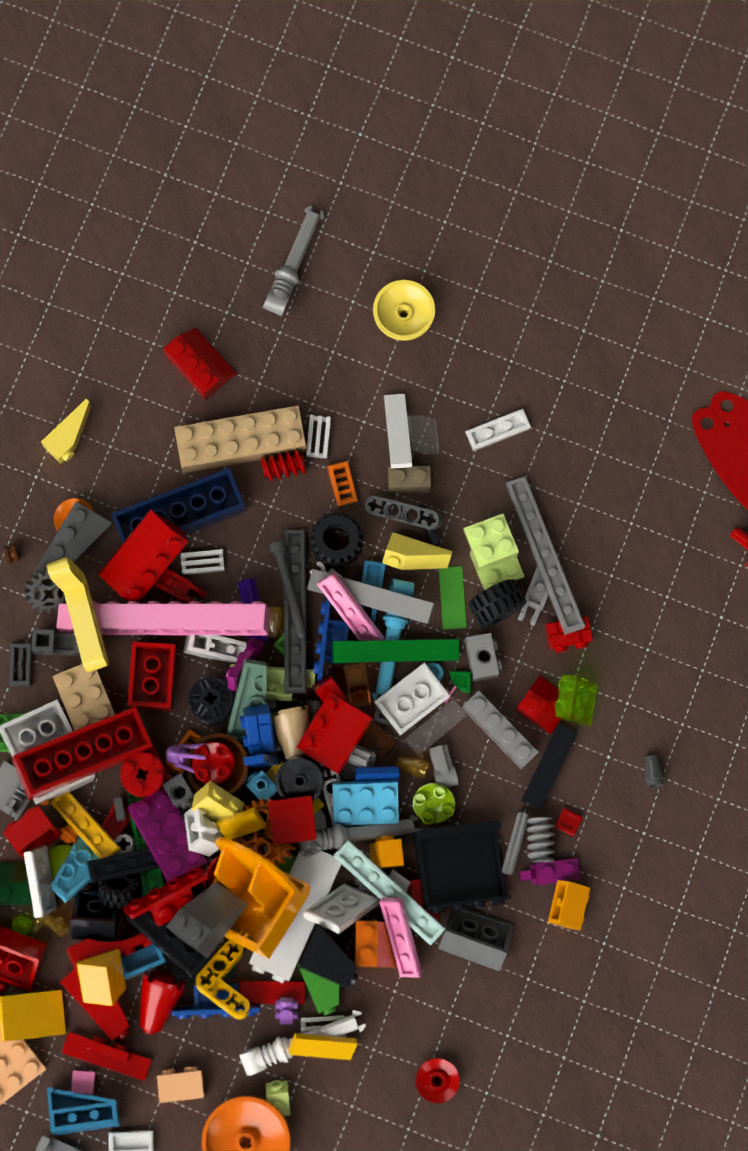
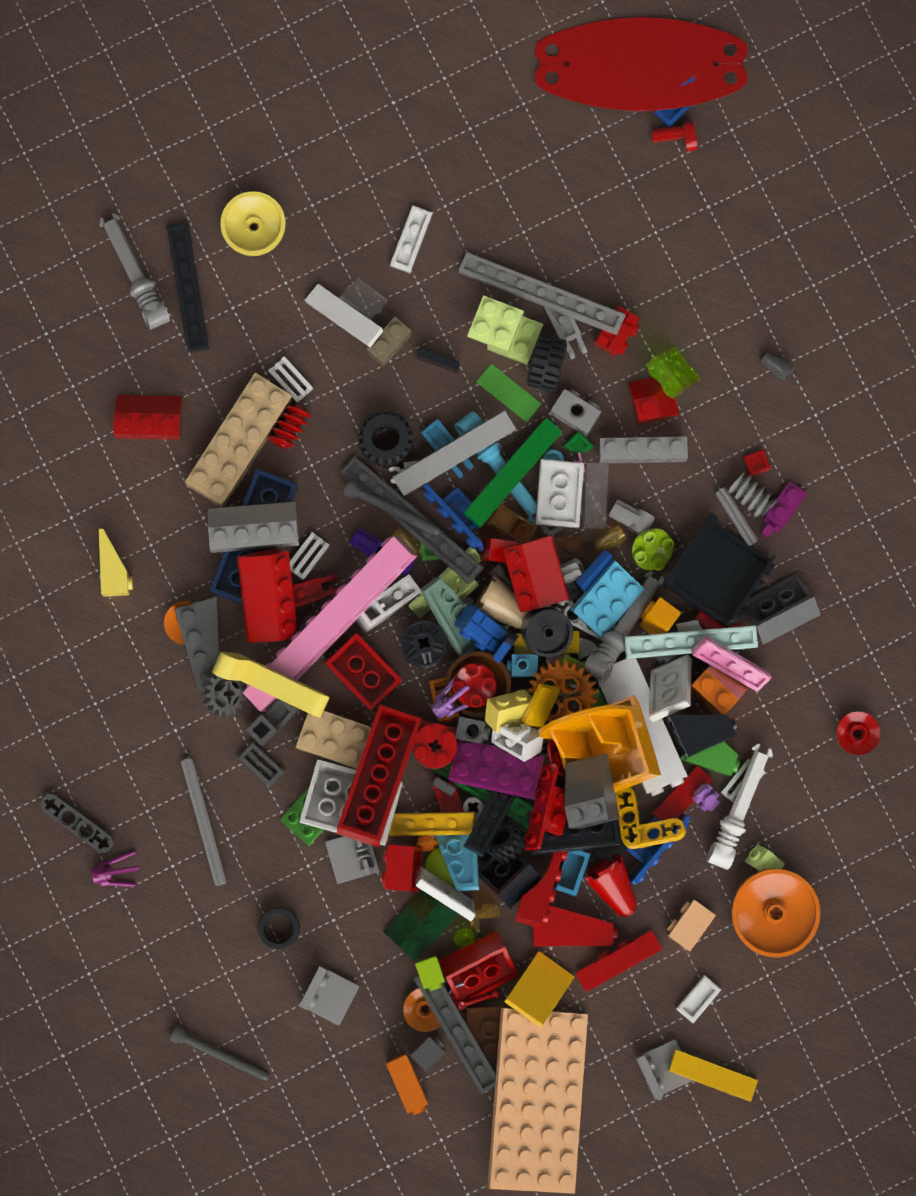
camera: 45 degrees left, 5 degrees up
(11, 553) = (168, 695): reddish brown bush -> none
(79, 1112) = (643, 1016): dark azure wedge -> none
(83, 1082) = (622, 995): bright pink tile -> none
(102, 978) = (561, 911): yellow slope -> none
(183, 502) = (253, 527): none -> light grey slope
(252, 649) = (413, 577): magenta hinge -> none
(292, 820) = (574, 664): red tile -> none
(317, 308) = (188, 287): none -> black tile
(322, 1046) = (758, 794): yellow tile -> none
(331, 468) = (347, 388): orange slope -> none
(349, 609) = (449, 477): bright pink tile -> none
(403, 514) = (410, 367): dark grey beam -> none
(413, 554) = (450, 391): light yellow slope -> none
(549, 766) = (703, 438): black tile -> none
(569, 905) = (819, 519): light orange brick -> none

